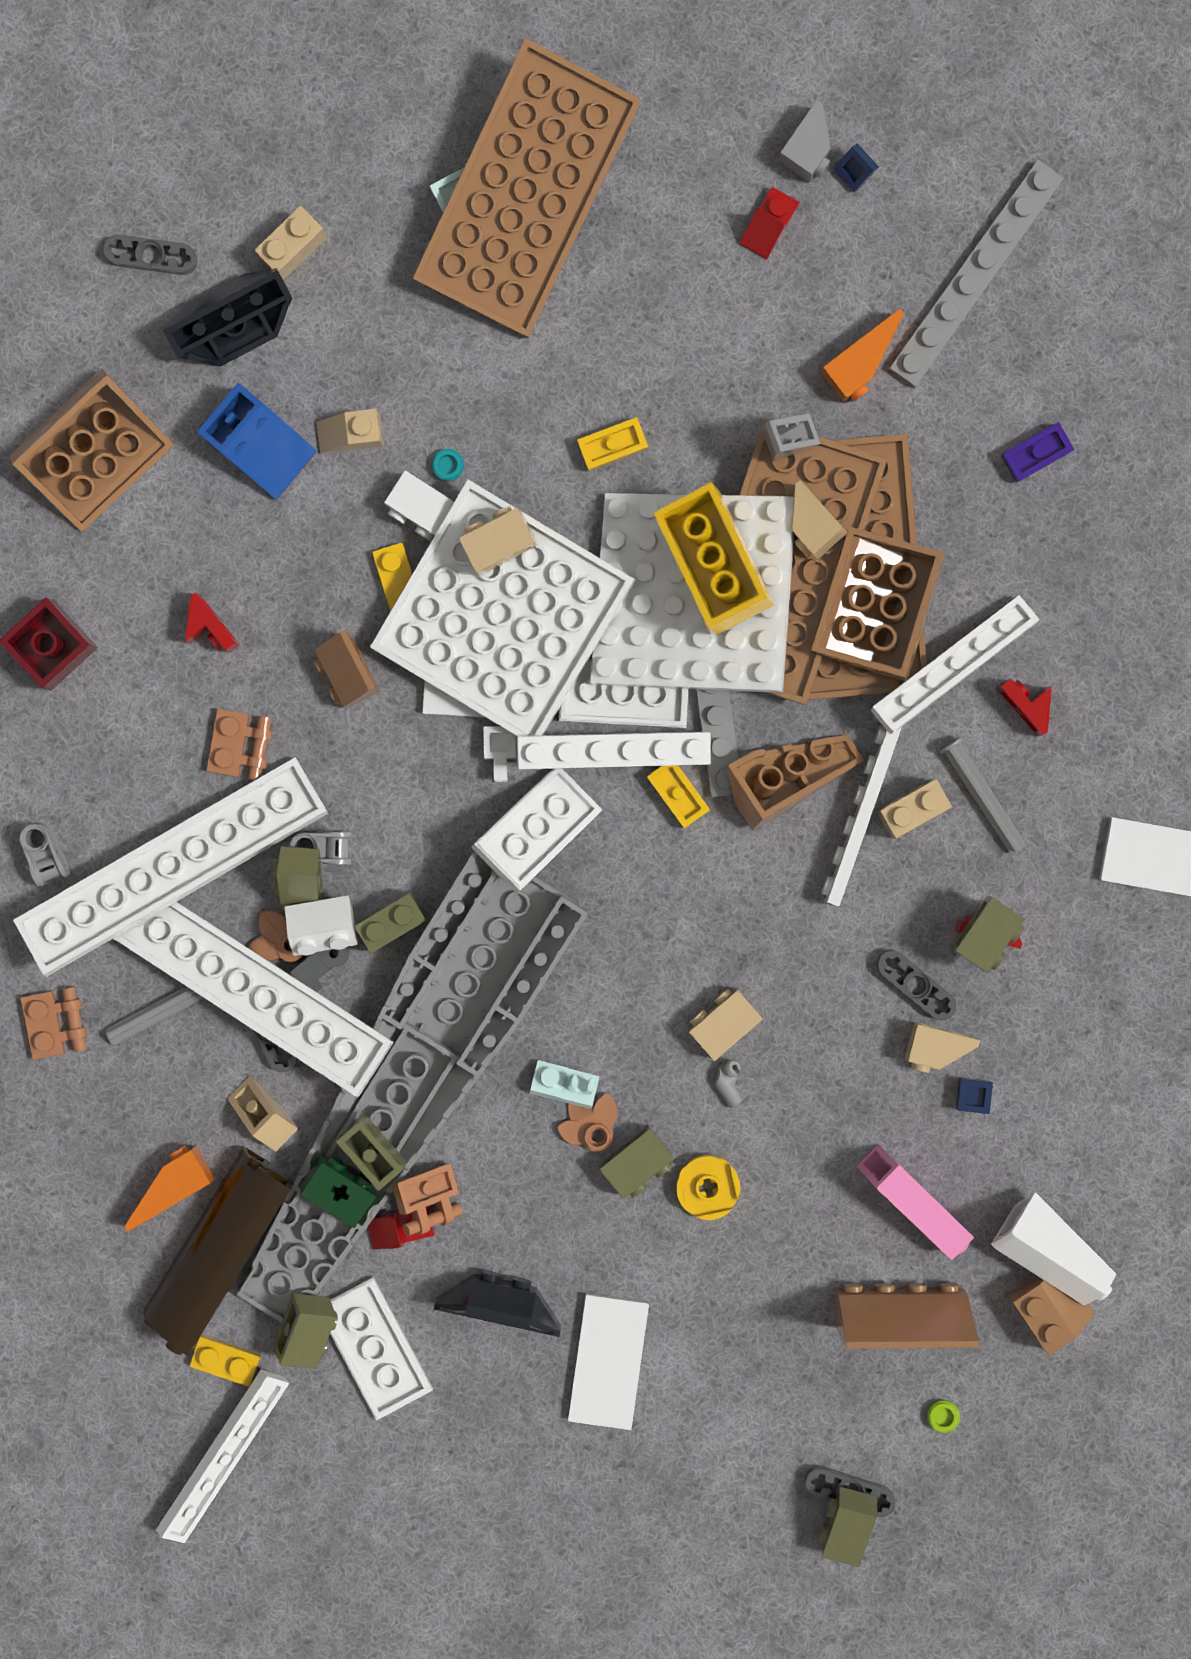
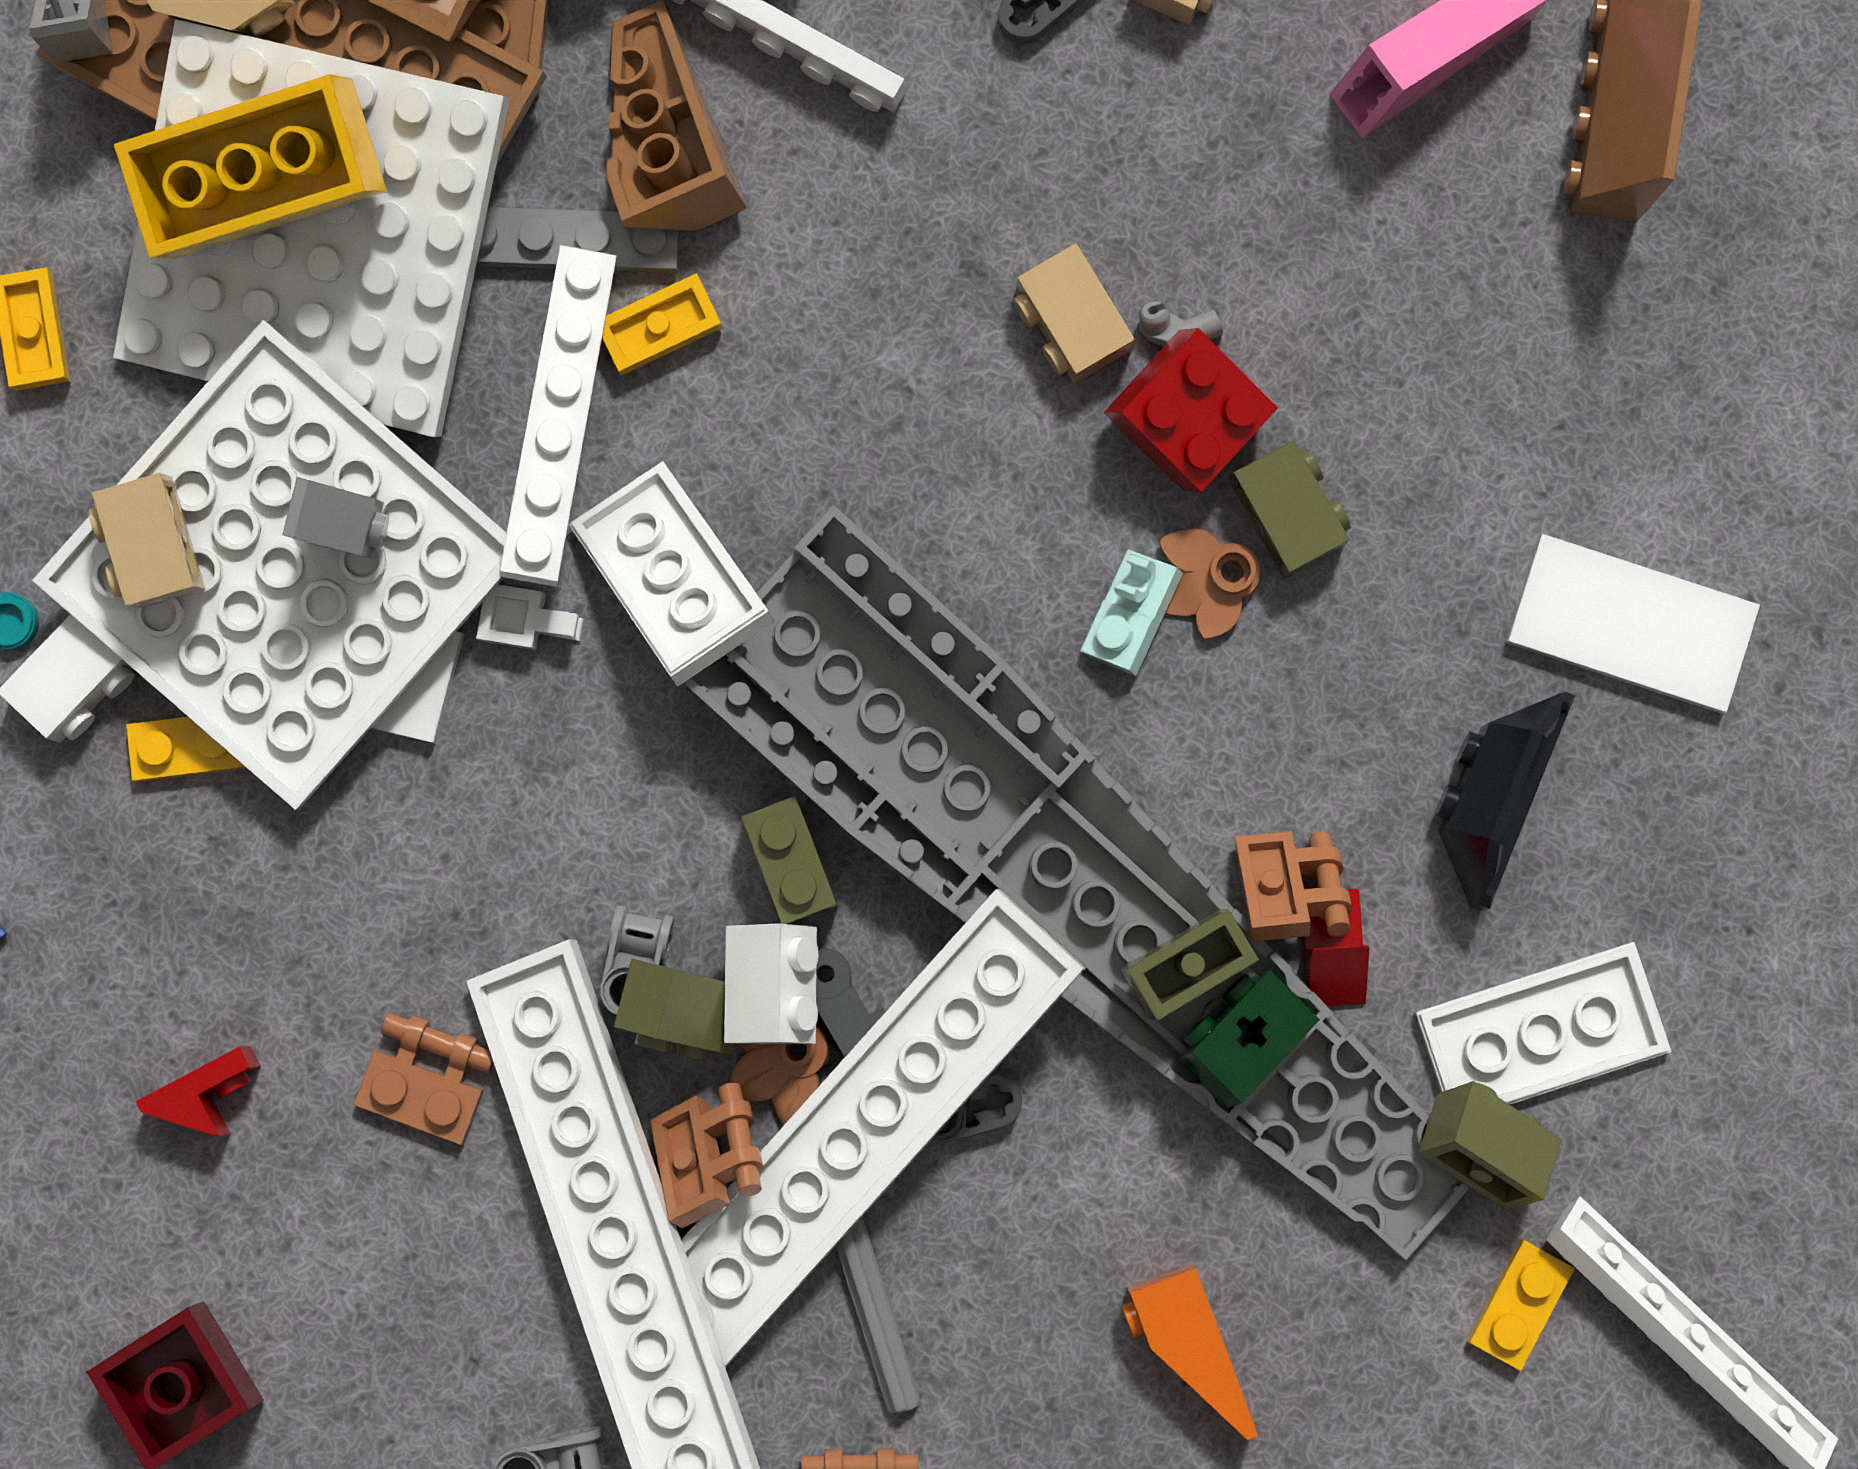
camera: 80 degrees left, 5 degrees down
(215, 1251) = (1321, 1281): dark brown cylinder -> none
(221, 898) = (690, 1157): none -> nougat plate
(262, 1114) = (1089, 1155): tan slope -> none
(345, 669) = (326, 860): medium nougat slope -> none
(527, 644) = (335, 518): none -> light grey slope
(623, 704) = (485, 389): white tile -> none
(681, 1098) = (1190, 410): none -> red brick
(696, 1201) = (1377, 373): yellow plate -> none
(943, 1416) = (1820, 66): lime tile -> none

